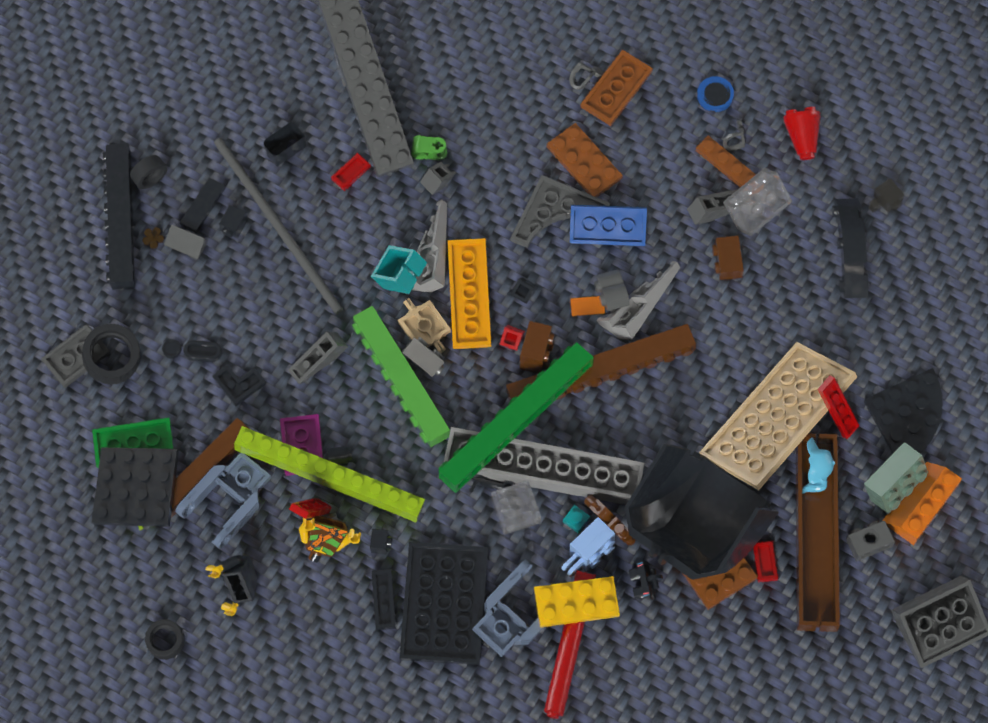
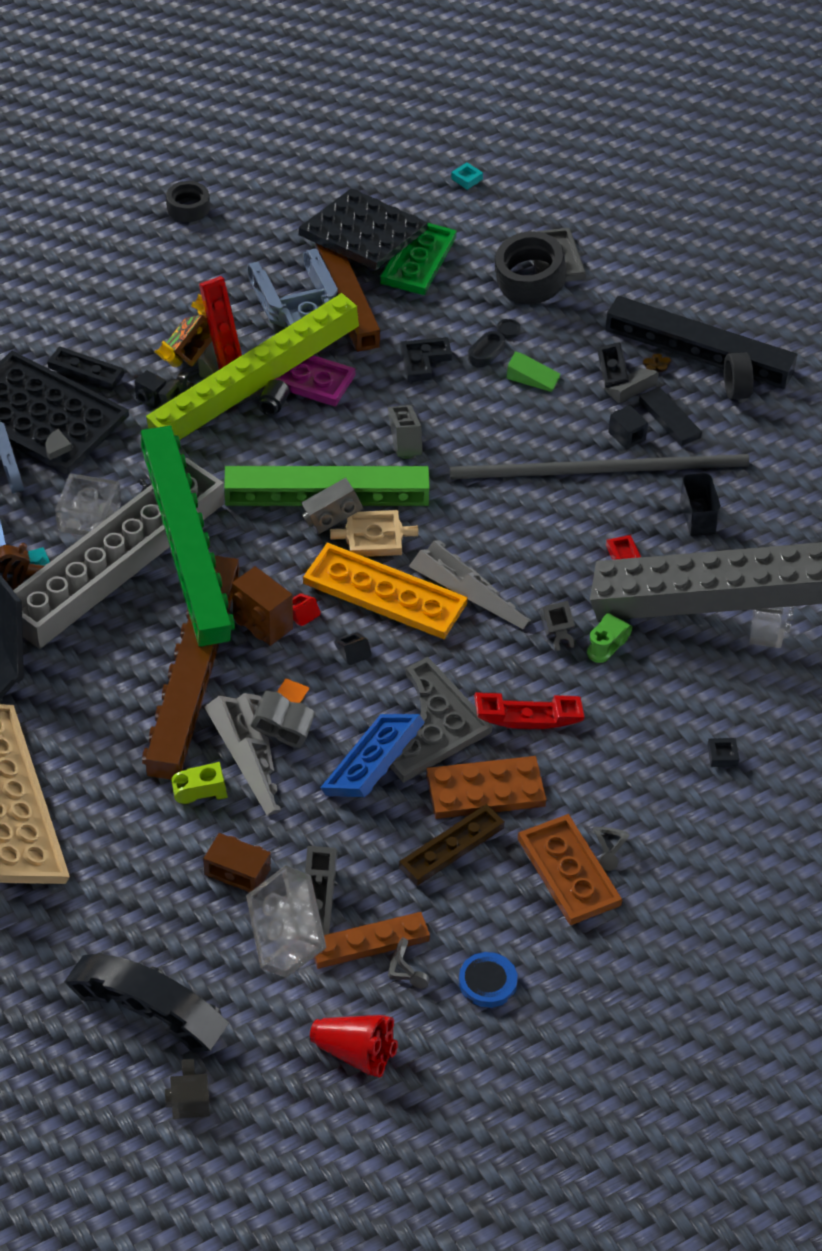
camera: 115 degrees right, 20 degrees down
(20, 458) = (467, 175): none -> teal plate
(177, 258) = (612, 364): none -> black slope
(211, 308) = (532, 373): none -> bright green slope
(239, 578) = (200, 259): black torso -> none
(375, 523) = (175, 387): none -> black plate
(398, 269) = (456, 527): teal piece -> none
(474, 563) = (57, 444): none -> dark grey tile
(479, 47) = (723, 752): none -> black plate
(514, 162) = (529, 714): none -> red slope
(639, 155) = (451, 845): none -> dark brown plate
(687, 310) = (199, 783): none -> lime leg

